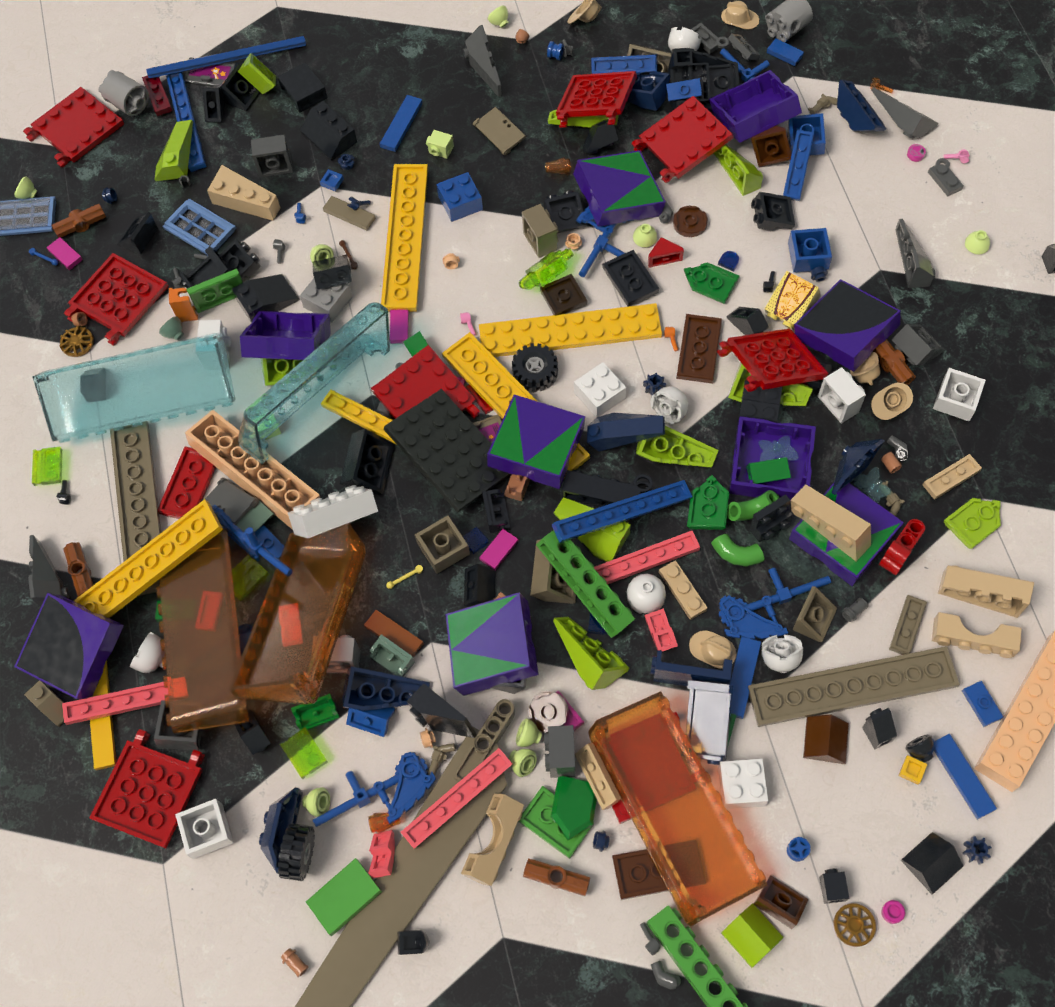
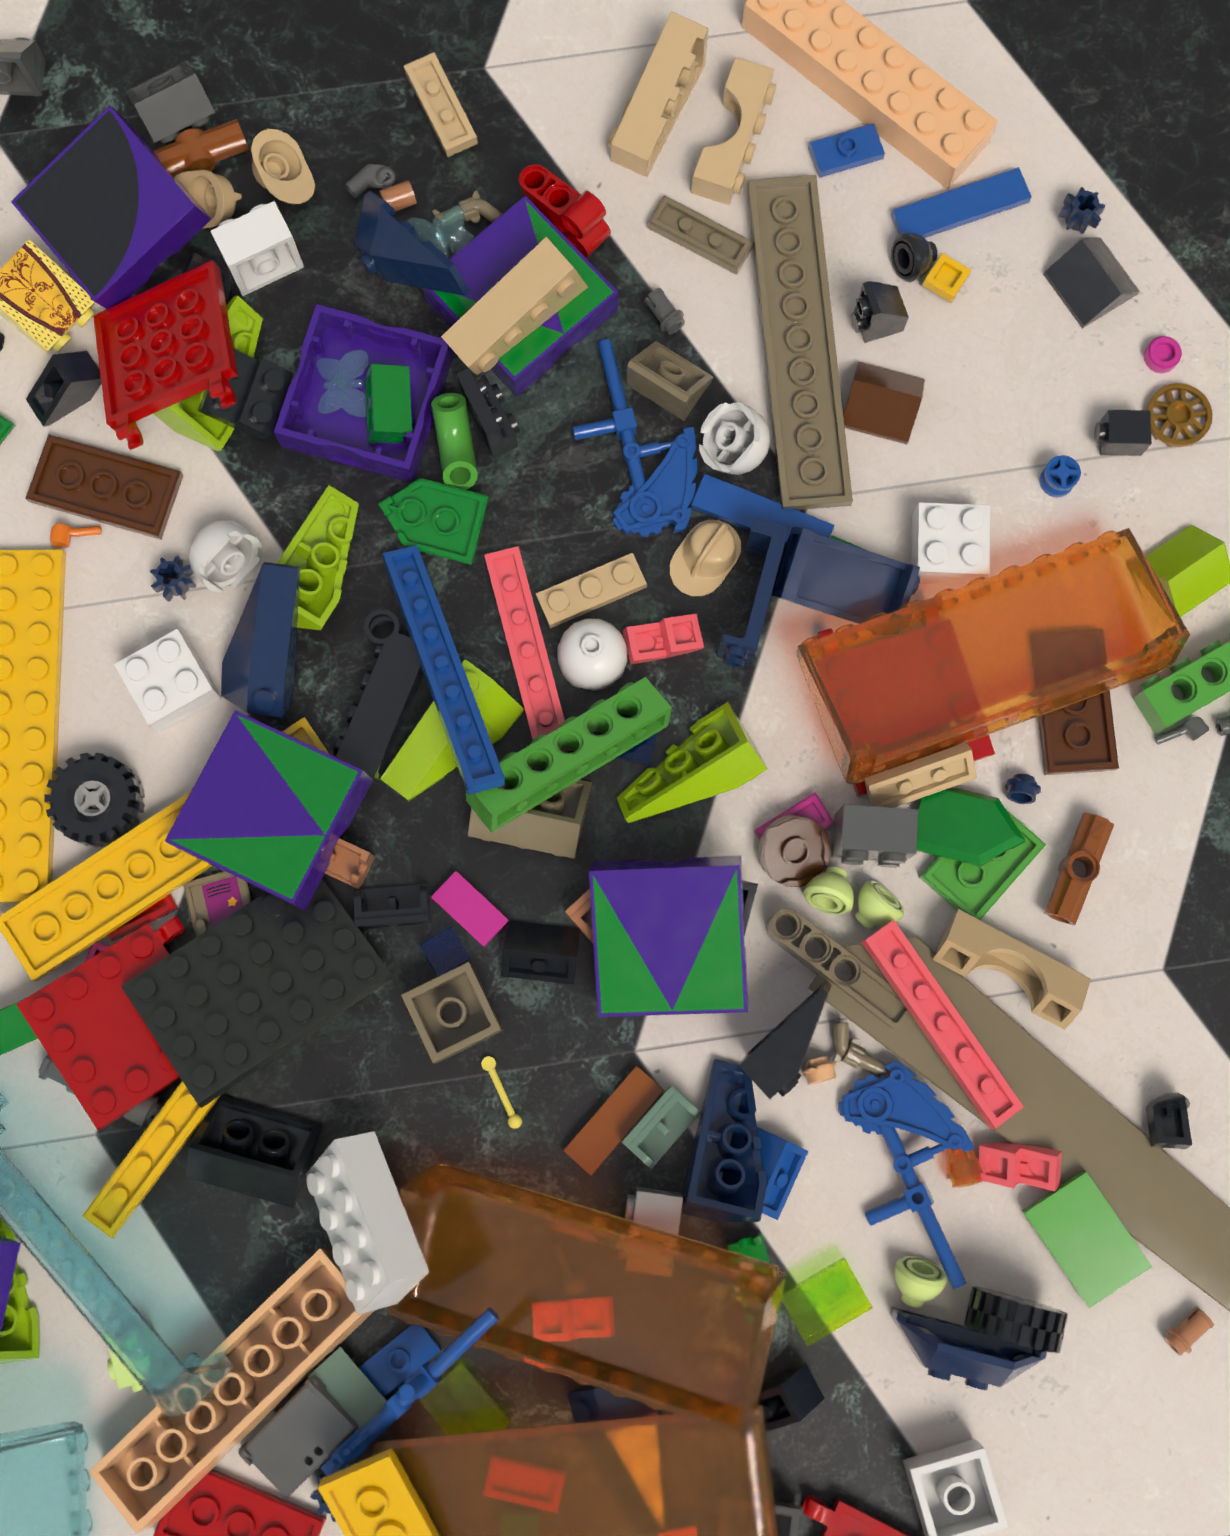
camera: 90 degrees left, 15 degrees up
(737, 554) = (540, 486): bright green cylinder -> none
(781, 902) = (1144, 509): reddish brown slope -> none
(959, 394) = (286, 54): white brick -> none
(974, 521) = (527, 88): lime tile -> none

